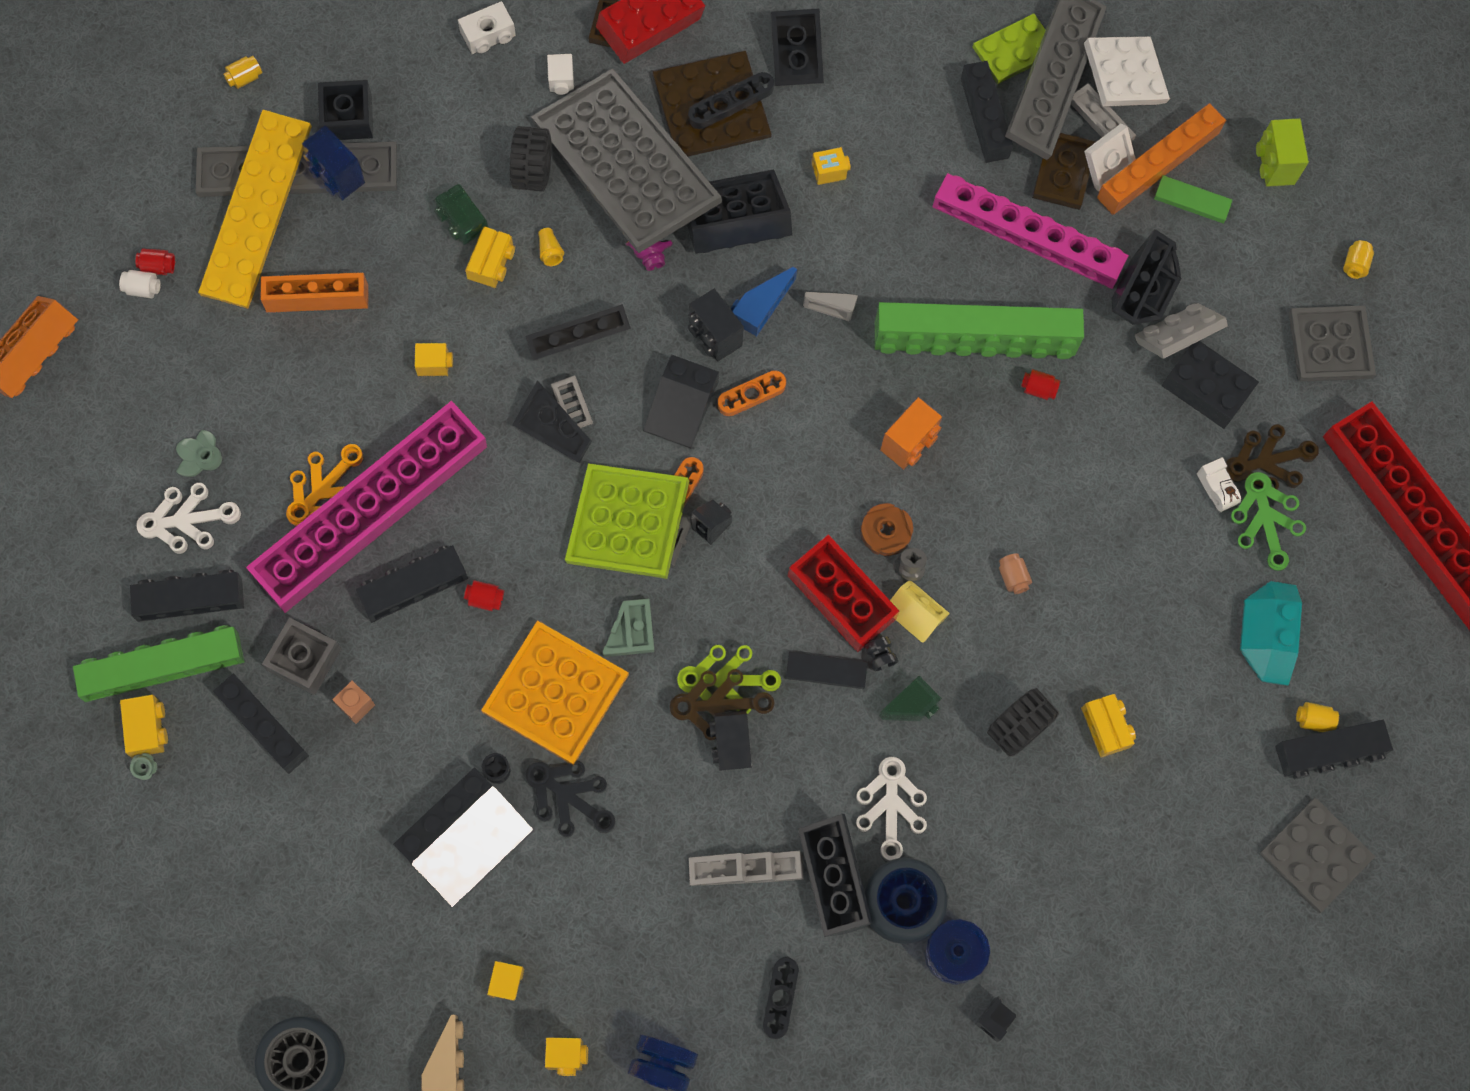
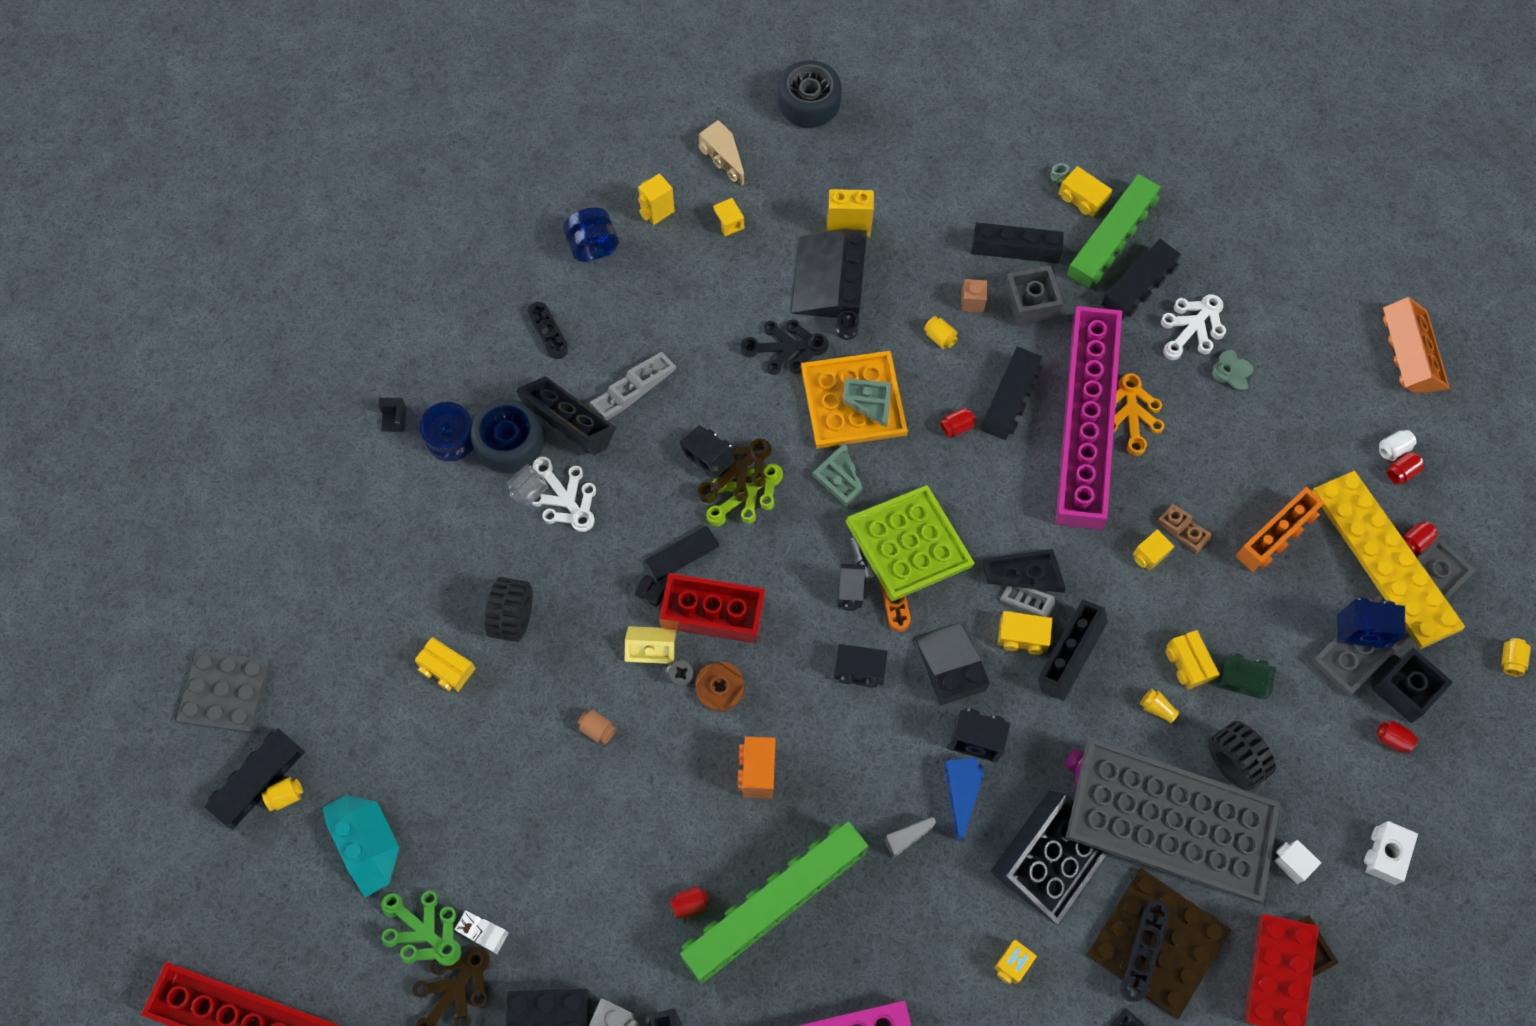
camera: 145 degrees right, 5 degrees down
(210, 203) = (1420, 537): none -> red brick
(385, 359) = (1184, 529): none -> medium nougat slope
(392, 875) = (850, 210): none -> yellow panel
(395, 91) = (1396, 736): none -> red brick
(417, 692) = (941, 332): none -> yellow brick
(546, 672) = (868, 398): none -> sand green wing
(600, 378) = (1024, 632): none -> yellow brick
(754, 383) = (893, 728): orange beam -> none
(757, 455) = (860, 665): none -> black brick
(913, 703) = (601, 572): clear green slope -> none
(921, 835) = (526, 485): none -> clear brick

